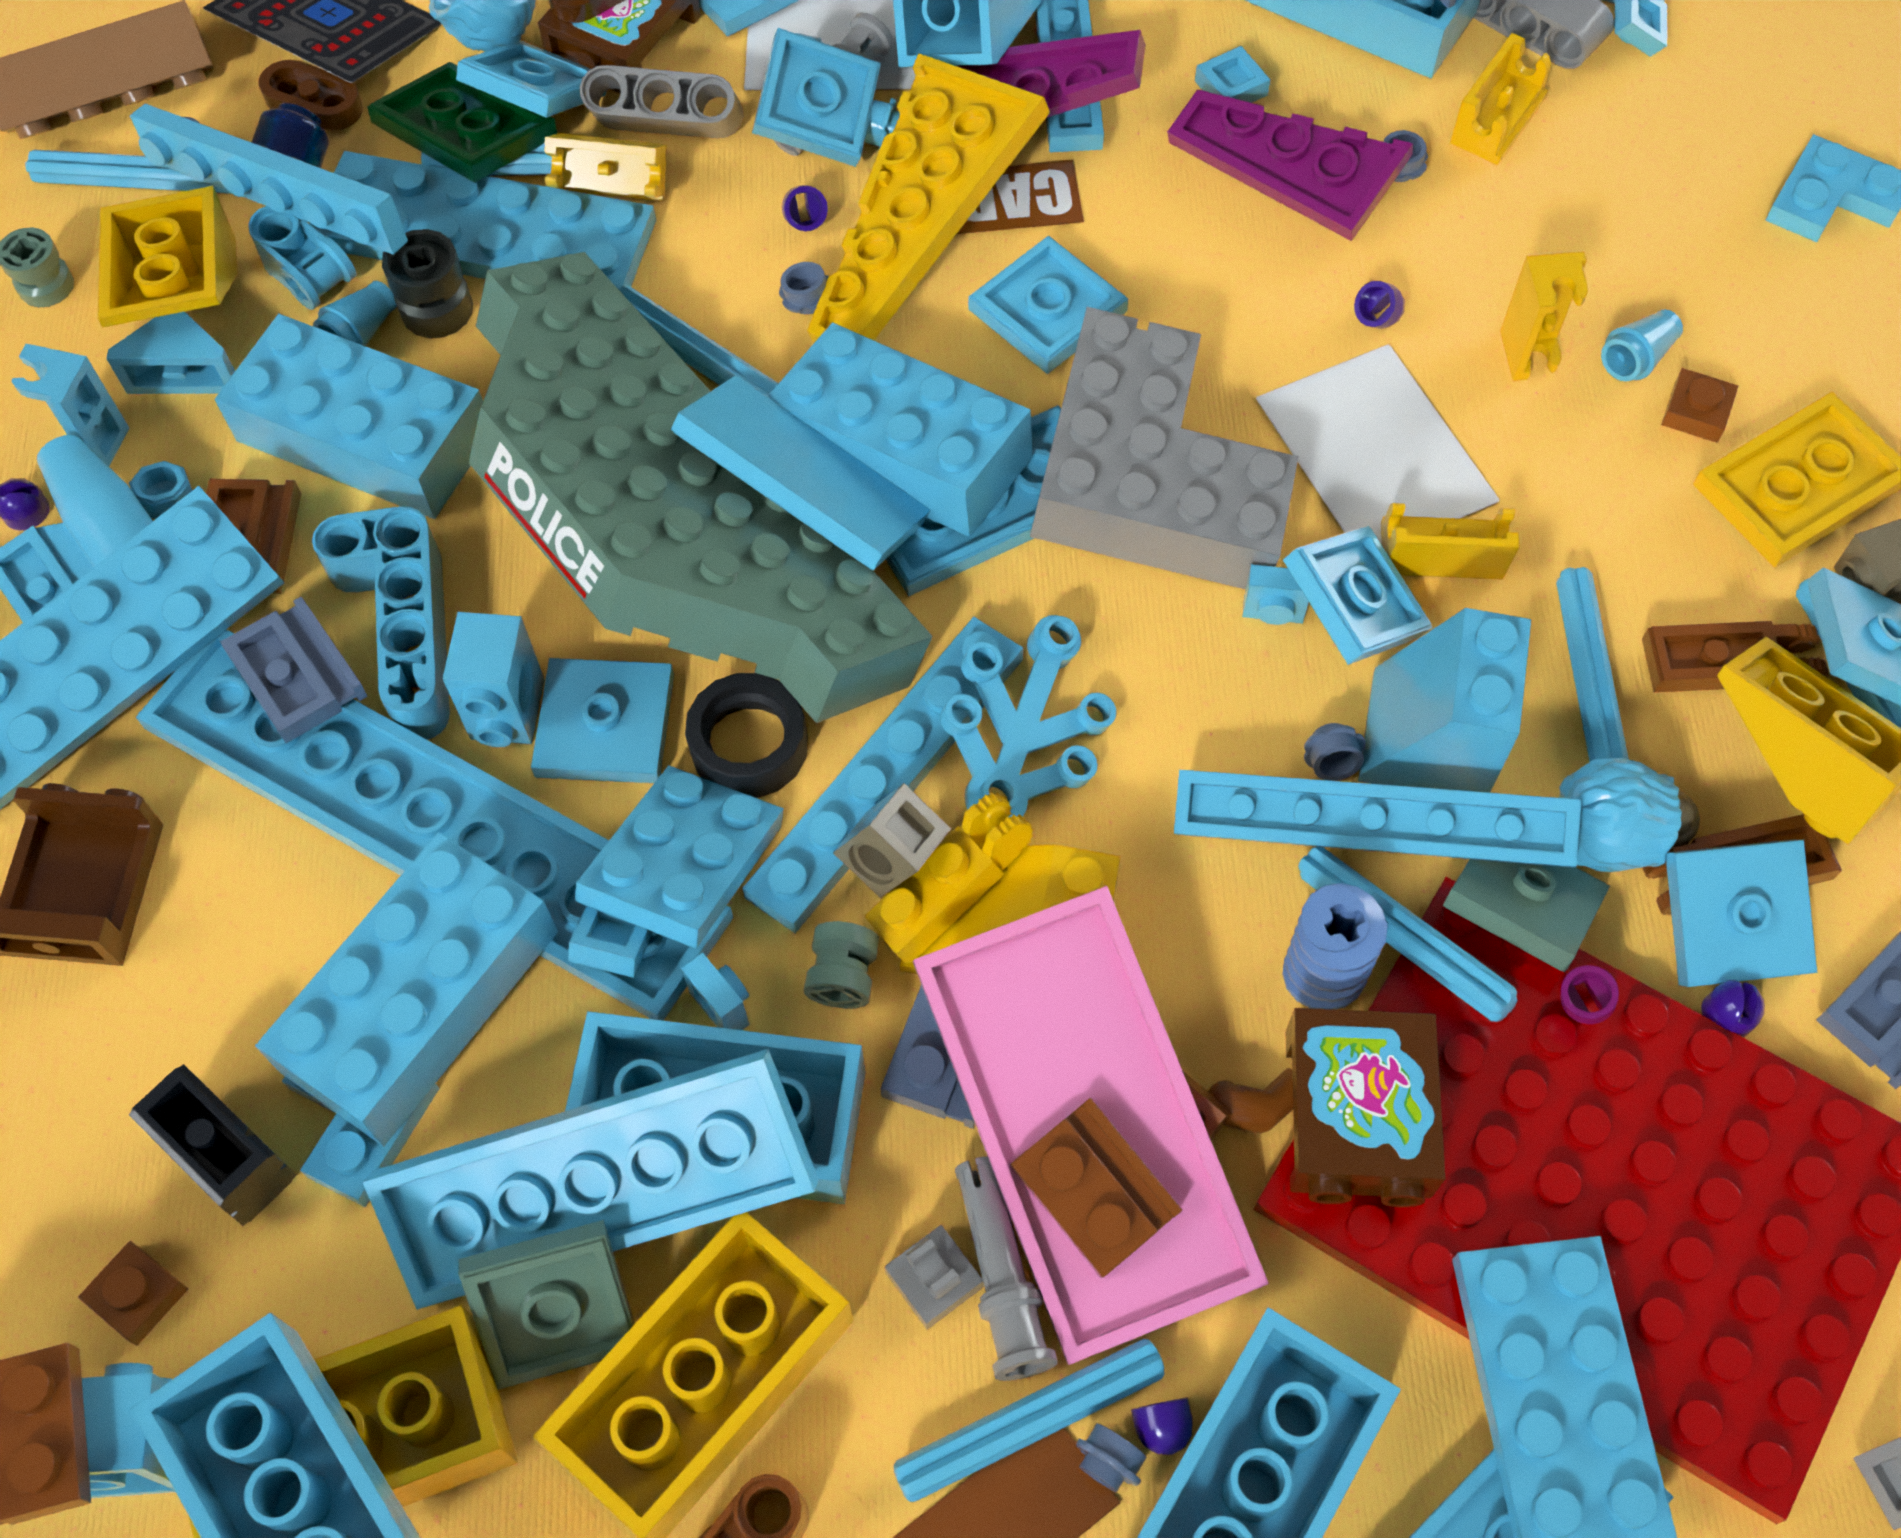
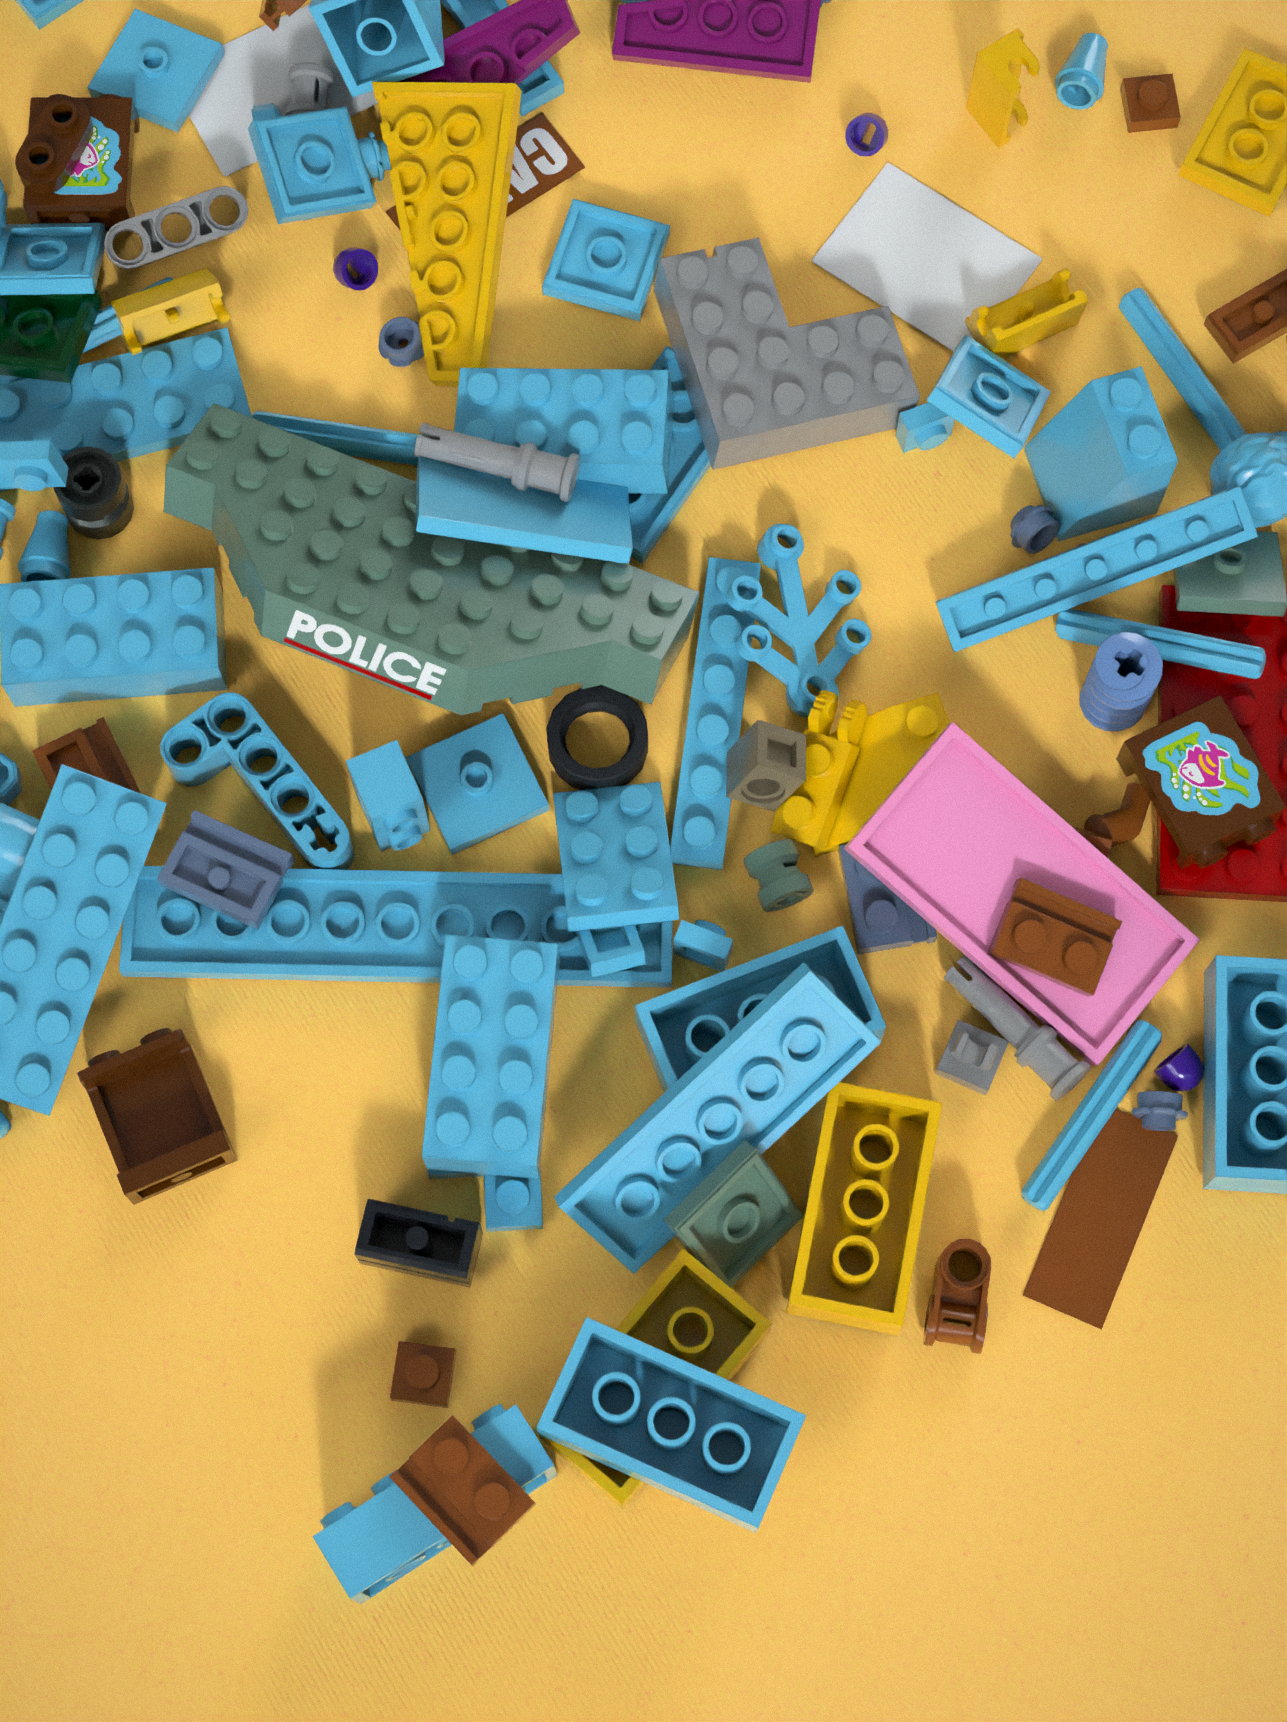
camera: 30 degrees left, 10 degrees up
(824, 426) = (523, 465): none -> light grey pin

